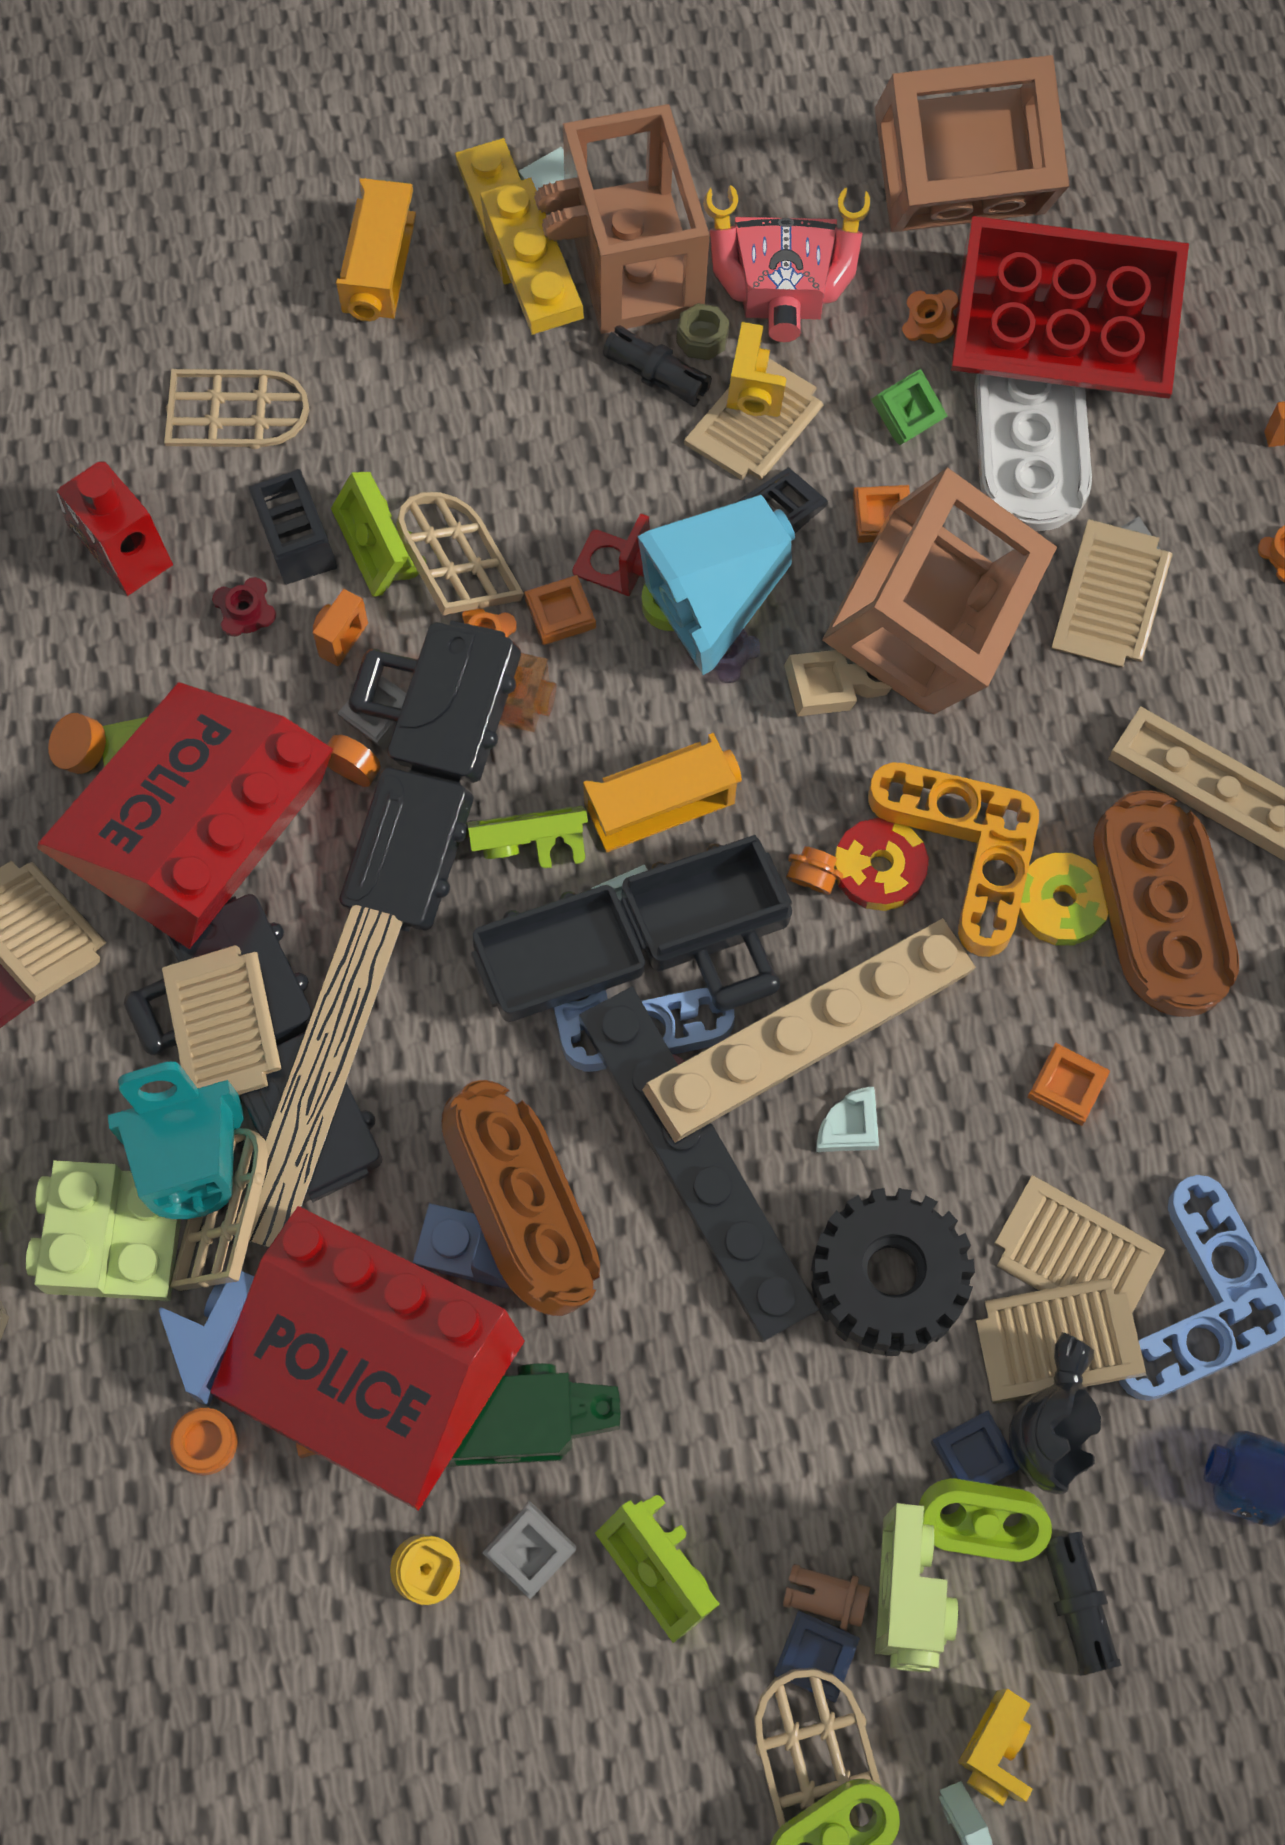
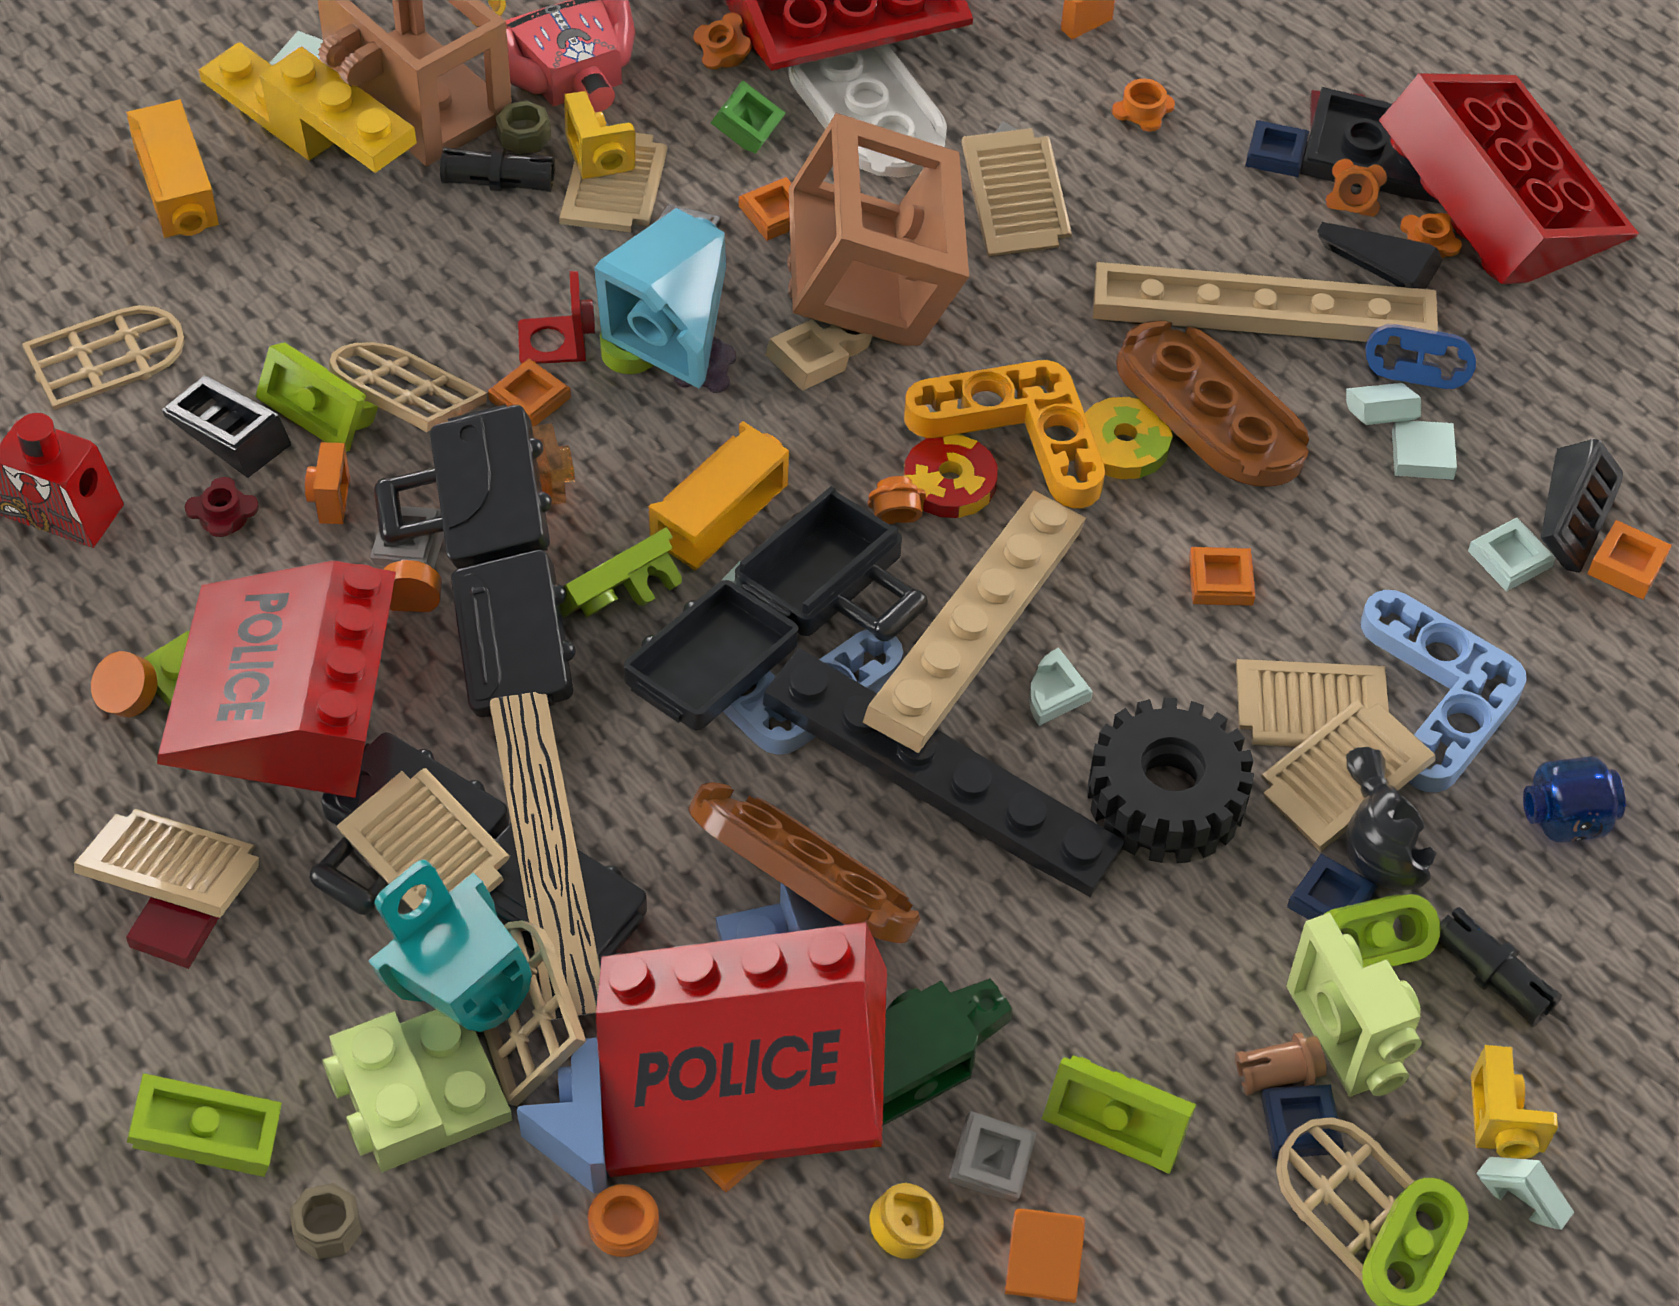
camera: 30 degrees left, 15 degrees down
(519, 1665) = (1045, 1255): none -> orange slope

